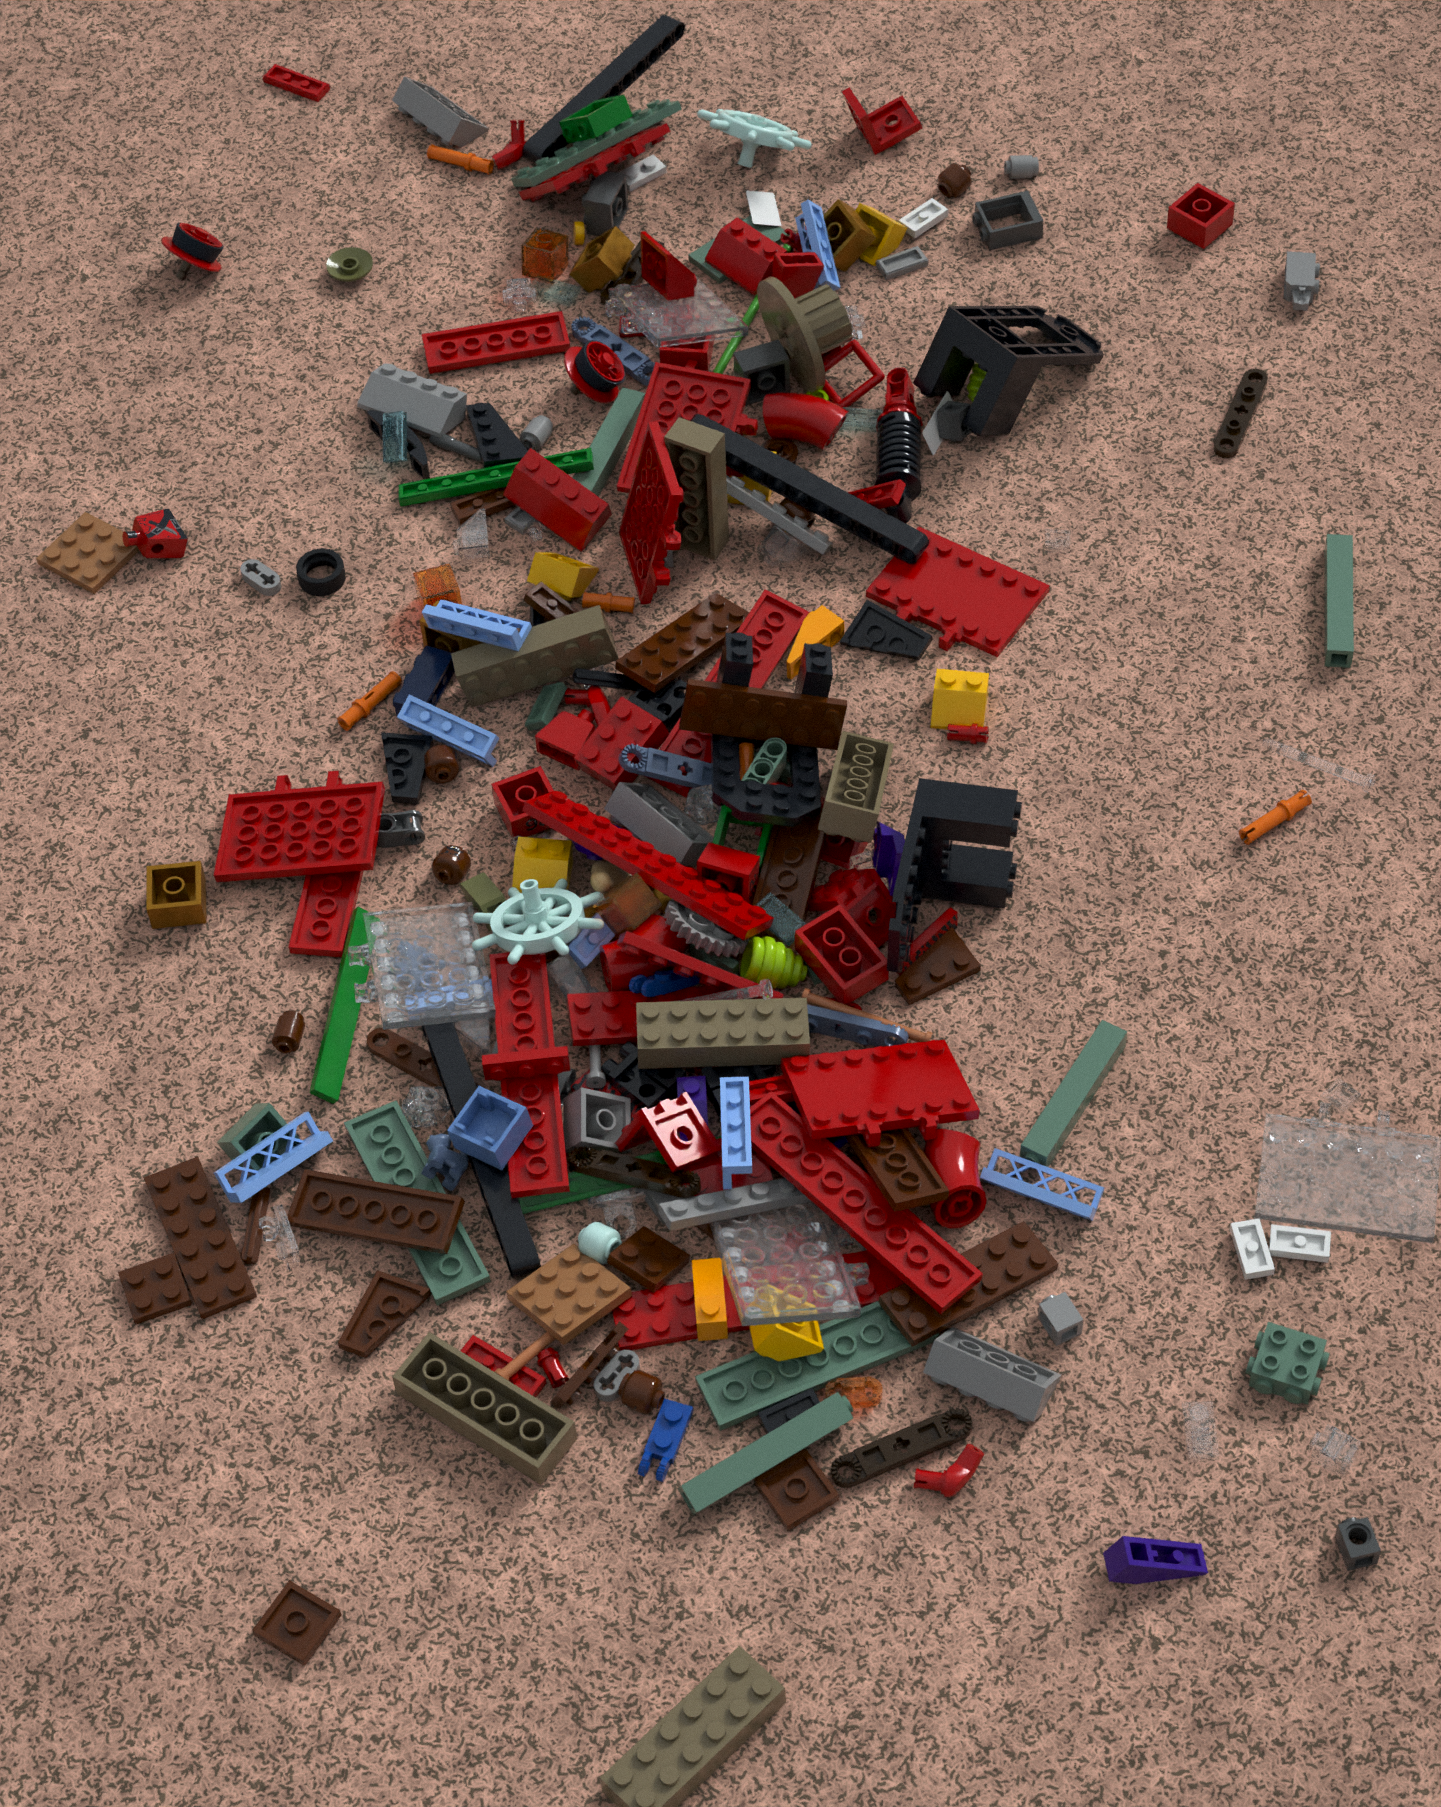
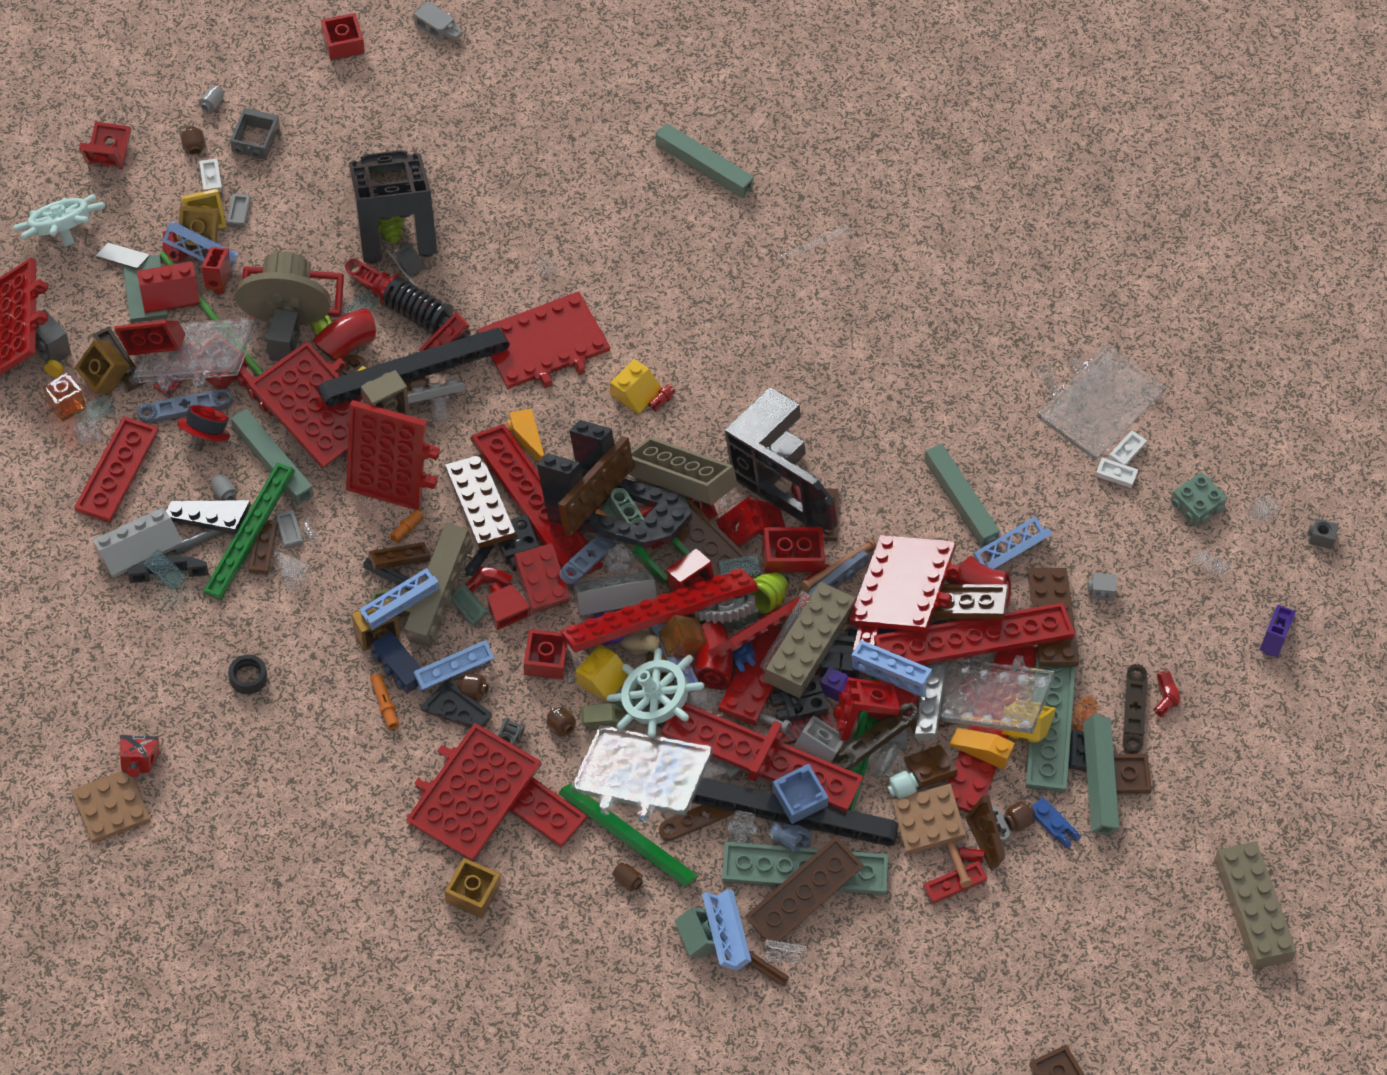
camera: 65 degrees left, 5 degrees up
(154, 1288) = (770, 1044): reddish brown plate -> none
(200, 1238) = (748, 1001): reddish brown plate -> none
(258, 580) = (221, 712): light grey beam -> none
(381, 1312) = (872, 926): reddish brown wing -> none
(436, 584) = (327, 615): clear orange head -> none
(485, 1408) = (980, 901): dark tan brick -> none
(556, 500) = (305, 505): red slope -> none
(561, 574) = (363, 537): yellow slope -> none
(885, 633) = (551, 394): black wing -> none
(887, 853) = (751, 482): dark purple plate -> none
(991, 1374) = (1118, 638): light grey slope -> none
(1236, 426) = (525, 126): dark brown piece -> none
(1283, 811) = (837, 288): orange pin -> none

